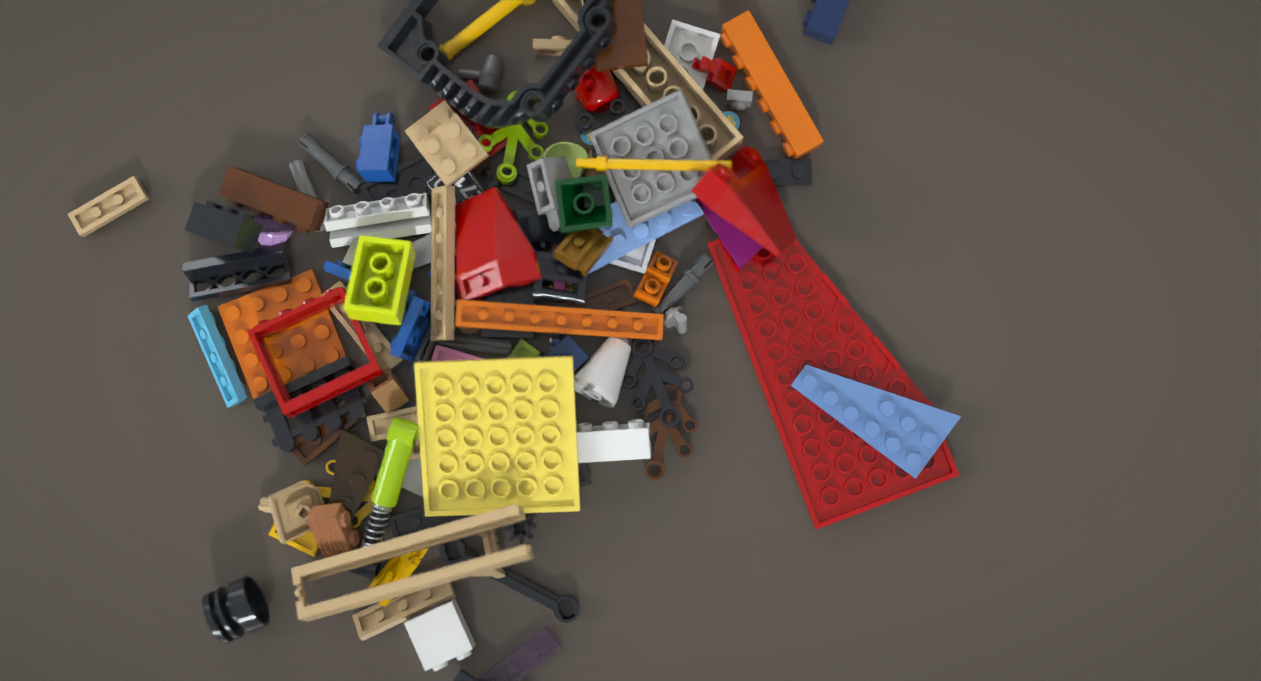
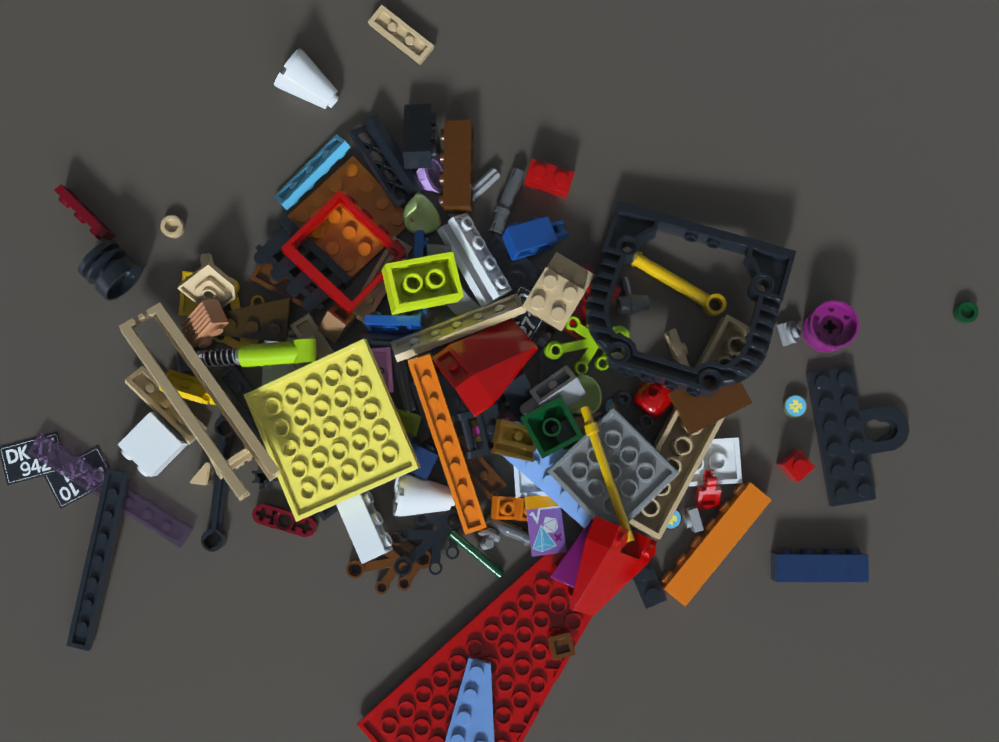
camera: 70 degrees right, 0 degrees up
(117, 324) = (306, 81): none -> white cone
(163, 618) = (83, 213): none -> dark red plate
(216, 528) = (172, 226): none -> tan tile
(309, 256) = (423, 213): none -> yellowish green helmet
(325, 109) = (549, 178): none -> red brick
(494, 591) = (204, 475): none -> tan slope
(558, 536) = (270, 509): none -> dark red beam
(685, 254) = (545, 525): none -> sticker
(687, 337) = (474, 552): none -> dark green bar
(815, 283) = (561, 645): none -> reddish brown plate

